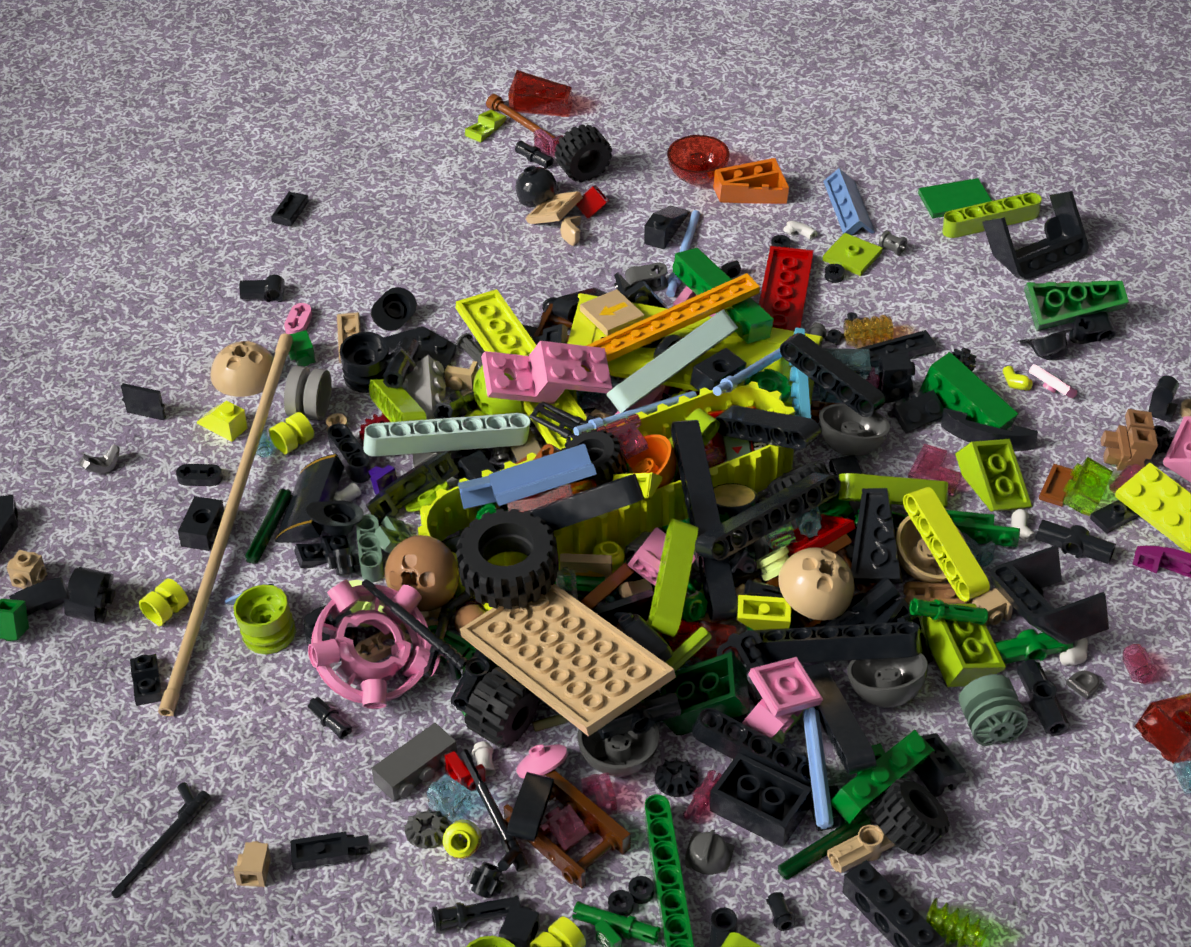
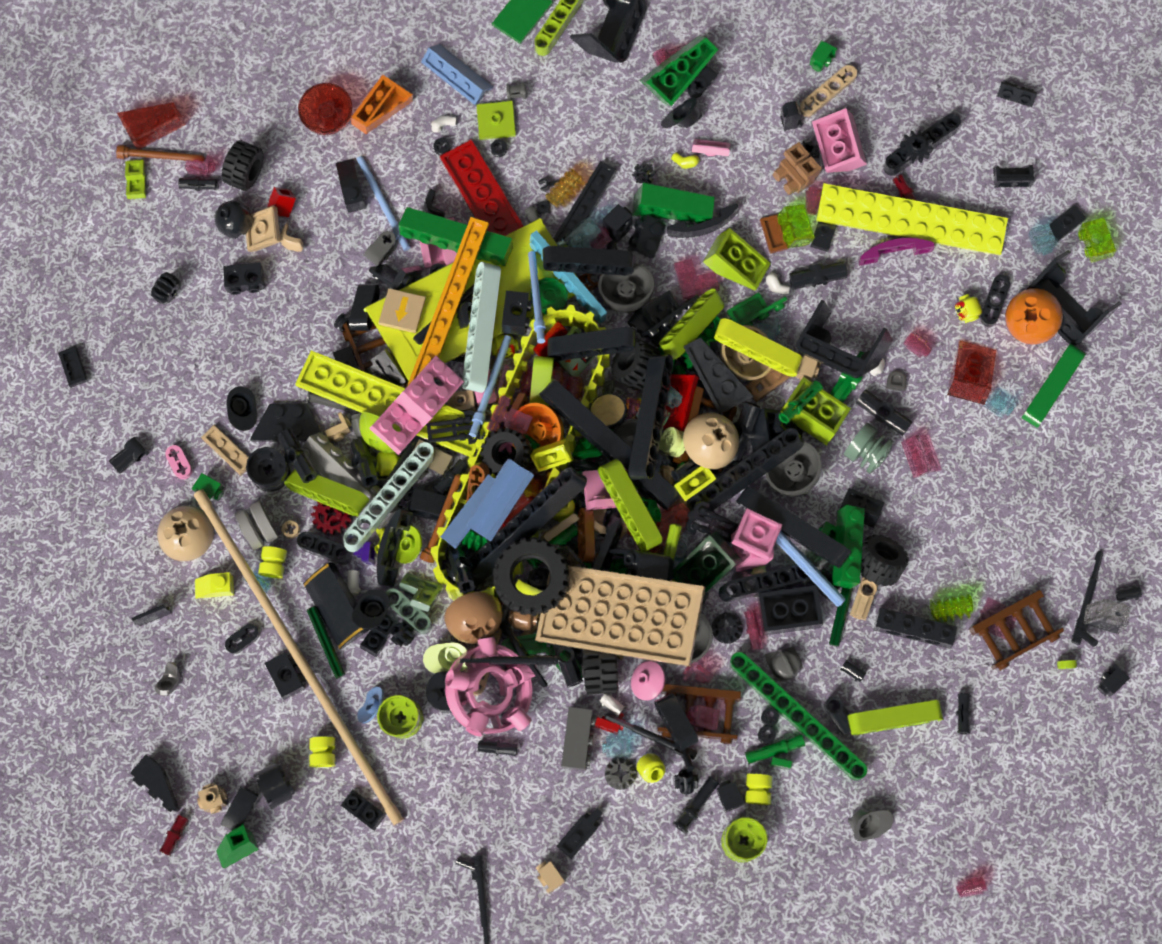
camera: 35 degrees left, 30 degrees up
(425, 197) = (165, 288): none -> black gear
(449, 525) = (460, 569): none -> black piece
(500, 230) = (244, 273): none -> black brick
(869, 461) = (662, 310): none -> black bracket
(1053, 763) = (920, 455): none -> clear pink panel

